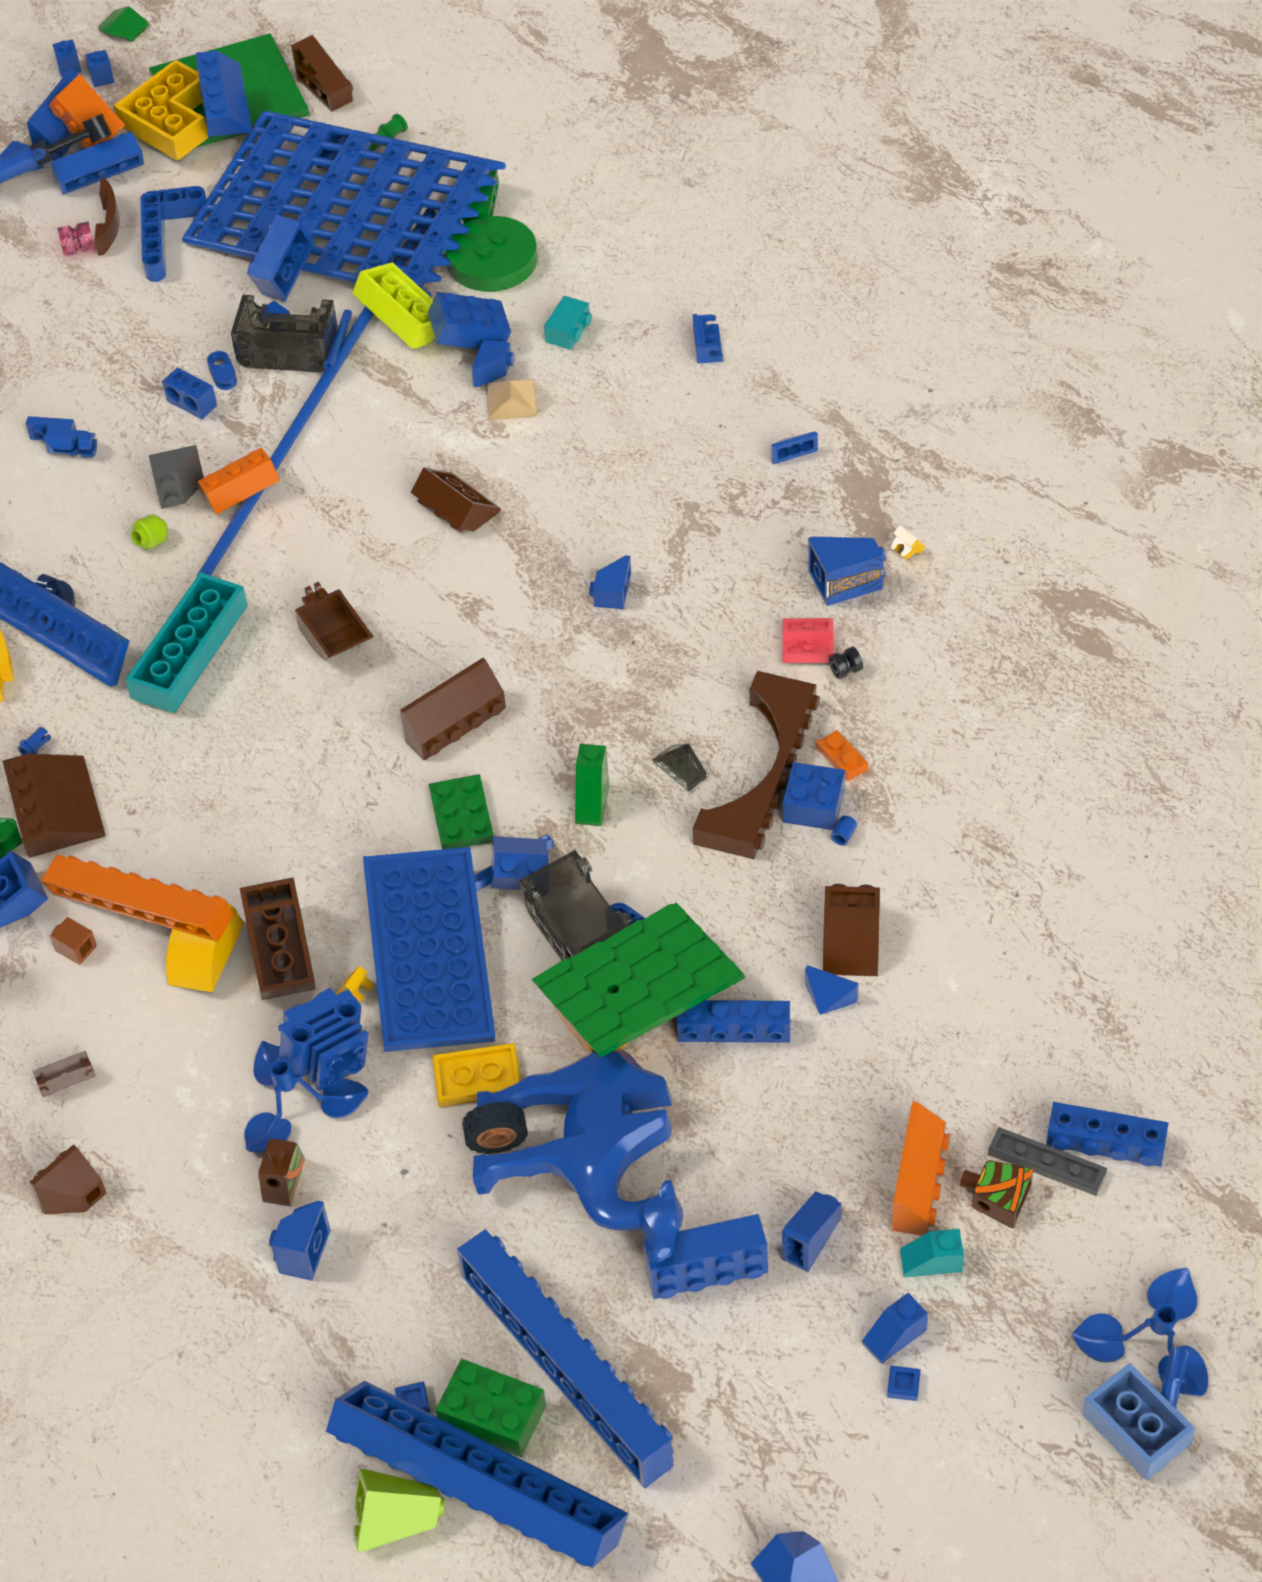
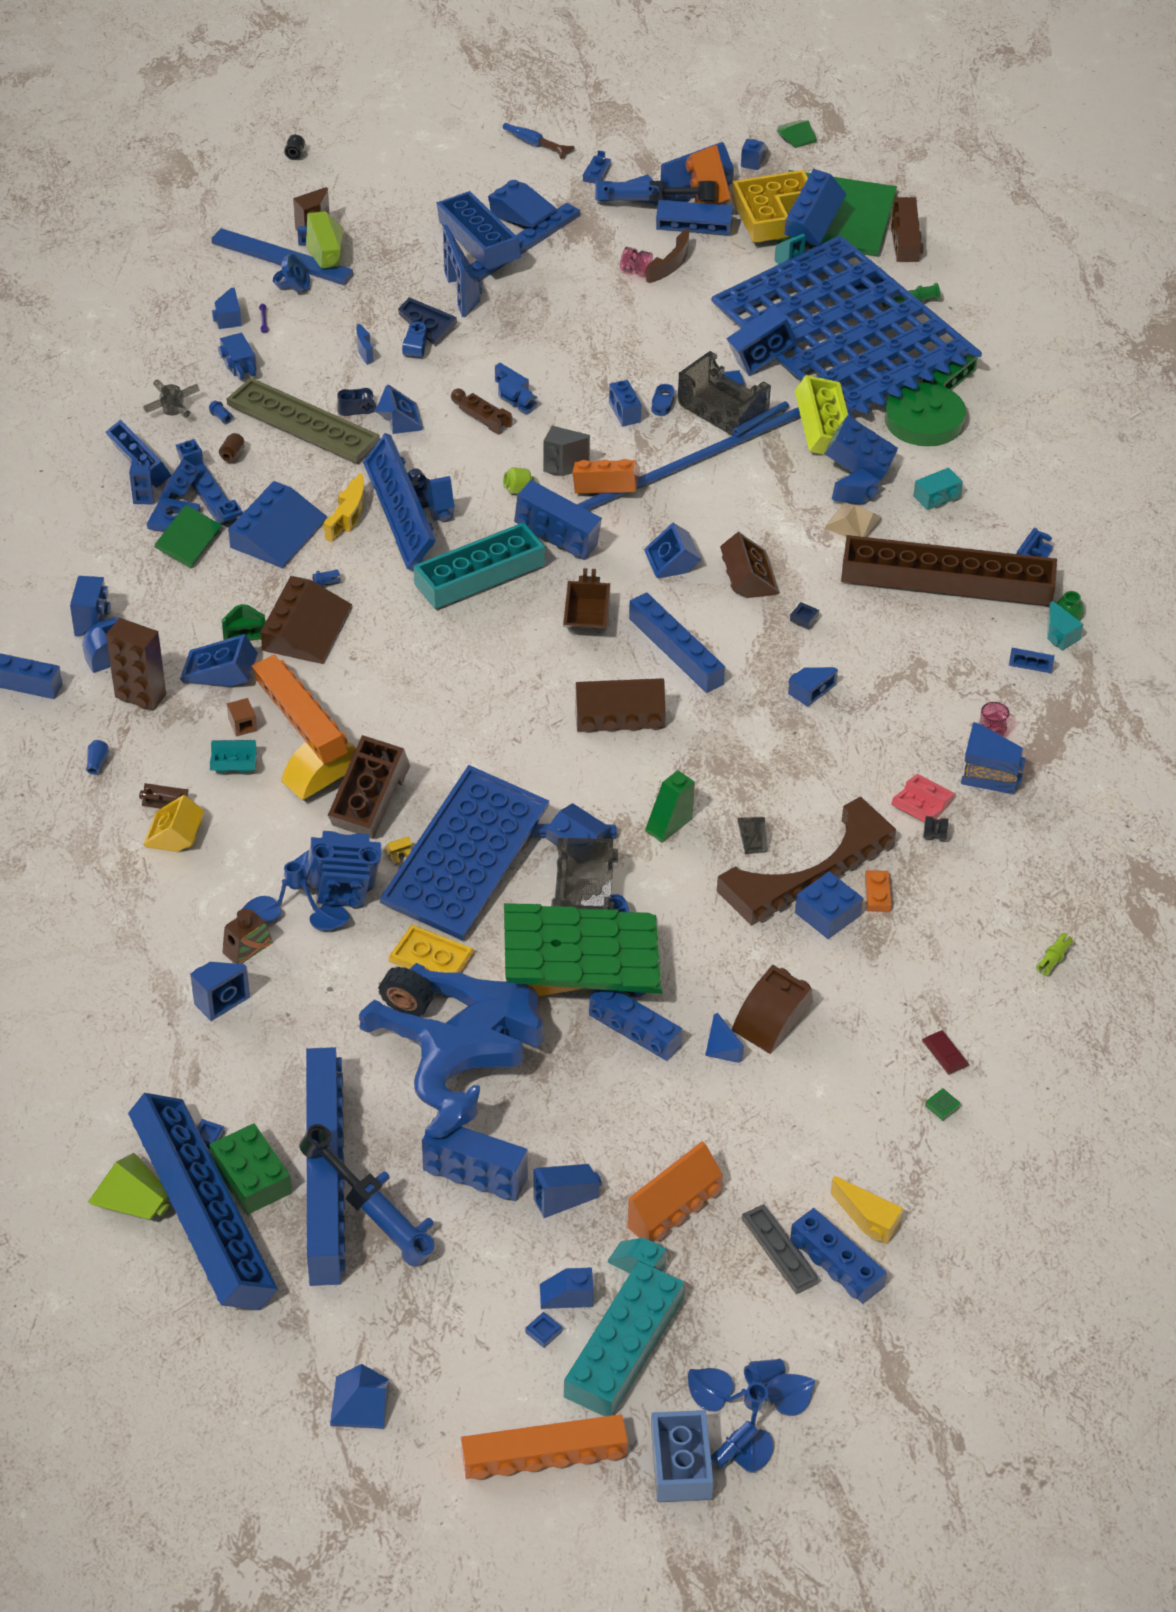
camera: 30 degrees right, 5 degrees down
(47, 477) = (482, 410): none -> reddish brown plate
(66, 56) = (735, 136): blue brick -> none
(67, 1184) = (103, 864): reddish brown slope -> none
(90, 593) = (441, 498): none -> blue slope
(100, 987) = (233, 755): none -> teal bracket
(101, 1098) = (175, 825): none -> yellow slope
(156, 208) = (706, 268): blue beam -> none
(223, 150) = (789, 248): none -> teal slope
(232, 551) = (557, 519): none -> blue brick
(367, 524) = (672, 552): none -> blue slope
(449, 613) = (677, 642): none -> blue brick
(461, 812) = (571, 778): green plate -> none
(547, 518) = (804, 615): none -> dark blue plate
(643, 1361) = (374, 1203): none -> piece
(647, 399) = (949, 570): none -> reddish brown brick
(784, 377) = (1072, 604): none -> green piece
(793, 399) = (1062, 627): none -> teal slope
(811, 522) = (995, 717): none -> clear pink wheel
(843, 830) = (831, 941): blue hinge -> none
(906, 540) = (1058, 770): tile -> none
(990, 1344) = (624, 1339): none -> teal brick
(999, 1190) = (725, 1245): torso -> none
(1005, 1499) = (544, 1446): none -> orange brick
(1031, 876) = (945, 1052): none -> dark red tile
(1050, 723) = (1054, 954): none -> lime pin
(1072, 928) = (942, 1104): none -> green tile
(1096, 1073) = (870, 1212): none -> yellow slope
(1134, 1291) = (763, 1370): none -> blue cone

